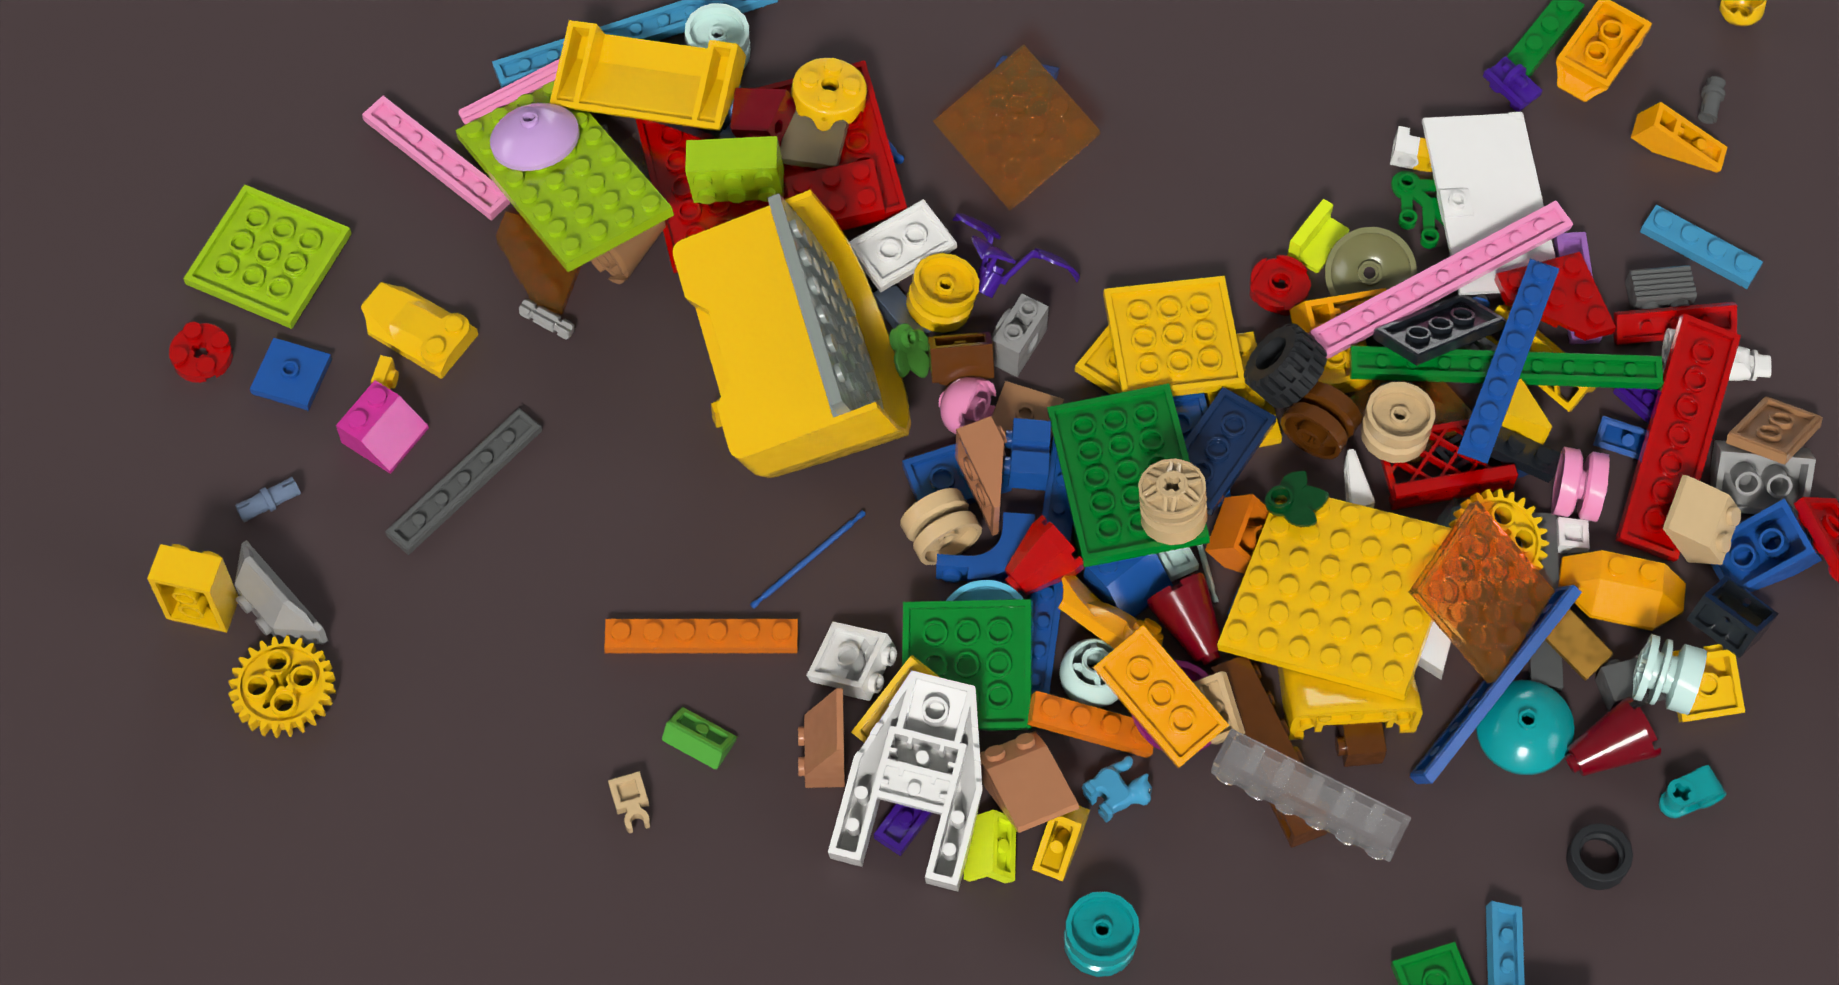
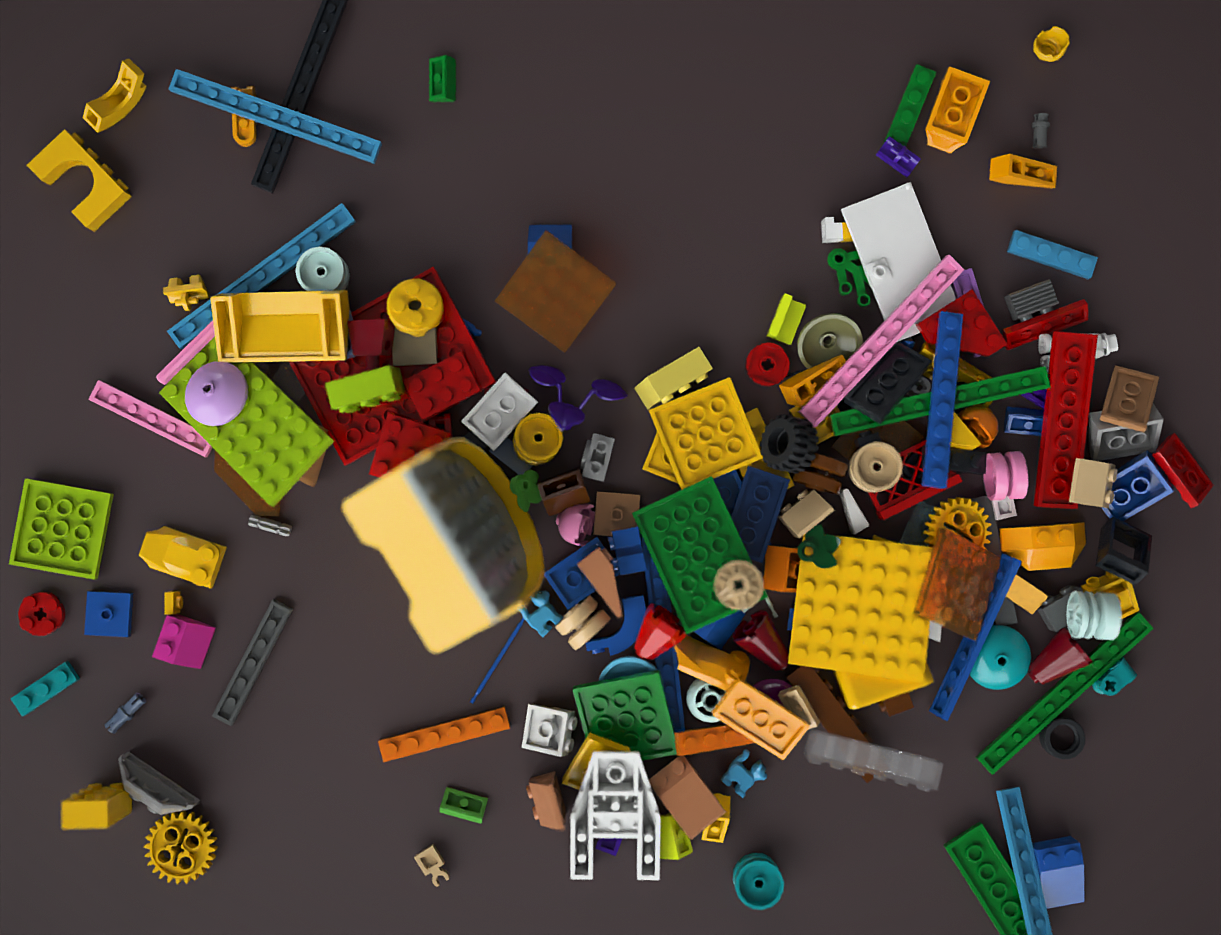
camera: 15 degrees left, 25 degrees up
(169, 444) = (45, 688): none -> teal plate
(532, 26) = (186, 294): none -> yellow hips
(884, 514) = (544, 613): none -> dark azure animal
(1147, 262) = (673, 378): none -> light yellow wedge
(1269, 469) = (804, 513): none -> tan slope
(1563, 414) = (981, 423): none -> orange cylinder
(1611, 797) = (1063, 694): none -> green plate

